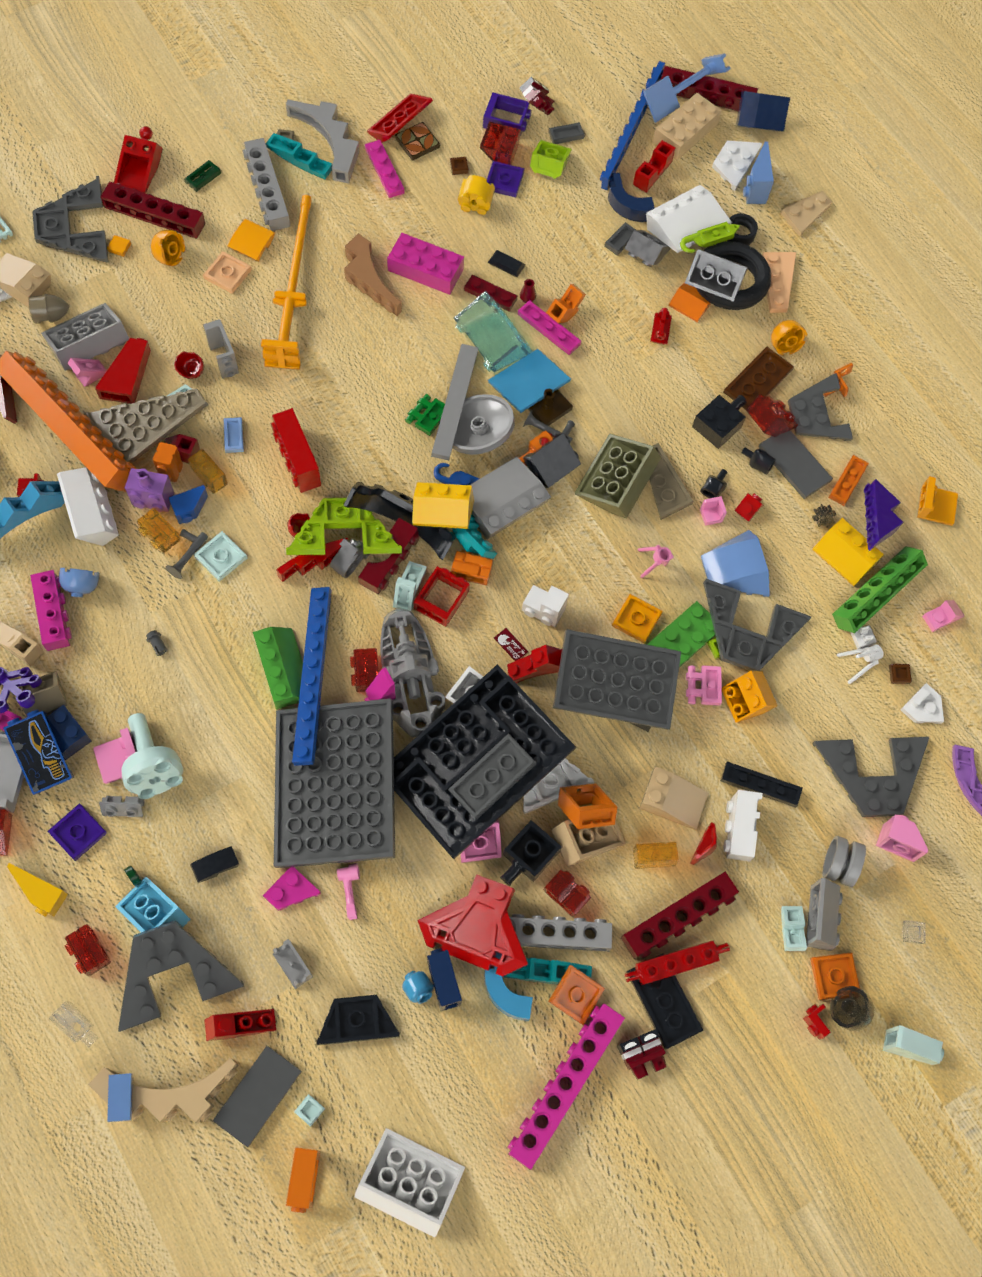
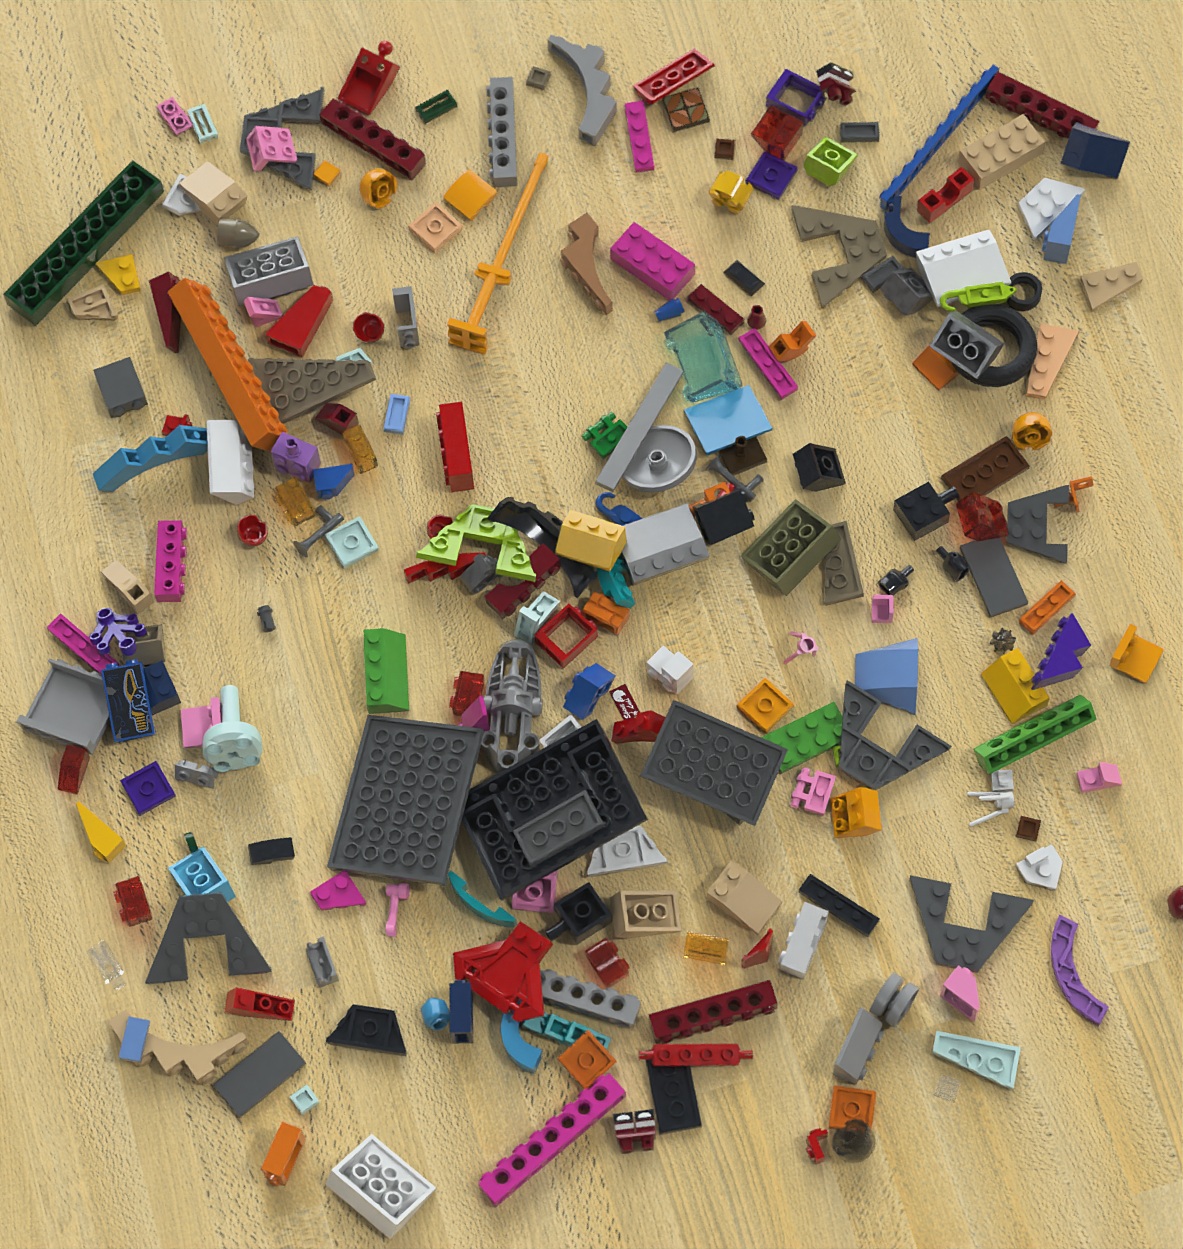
camera: 25 degrees right, 0 degrees up
(59, 228) = (270, 145): none -> bright pink bracket
(78, 581) = (203, 538): medium blue cylinder -> none
(123, 565) = (252, 530): none -> red hair
(168, 461) = (321, 431): orange brick -> none
(298, 156) = (547, 104): teal slope -> none
(312, 677) = (412, 686): blue plate -> none
(452, 300) = (670, 310): none -> blue cone
(454, 875) = (500, 916): none -> teal slope
(476, 640) = (587, 690): none -> blue brick
(593, 216) = (859, 240): none -> dark tan wing
(601, 812) = (649, 883): orange window -> none
(618, 404) = (818, 467): none -> black slope
(661, 327) = (894, 389): red hinge -> none
(662, 95) = (981, 112): medium blue piece -> none
(749, 506) = (925, 612): red bracket -> none
(793, 928) = (825, 1054): light aqua slope -> none
(913, 1045) = (905, 1191): light aqua slope -> none
(942, 895) = (985, 1058): none -> light aqua wing

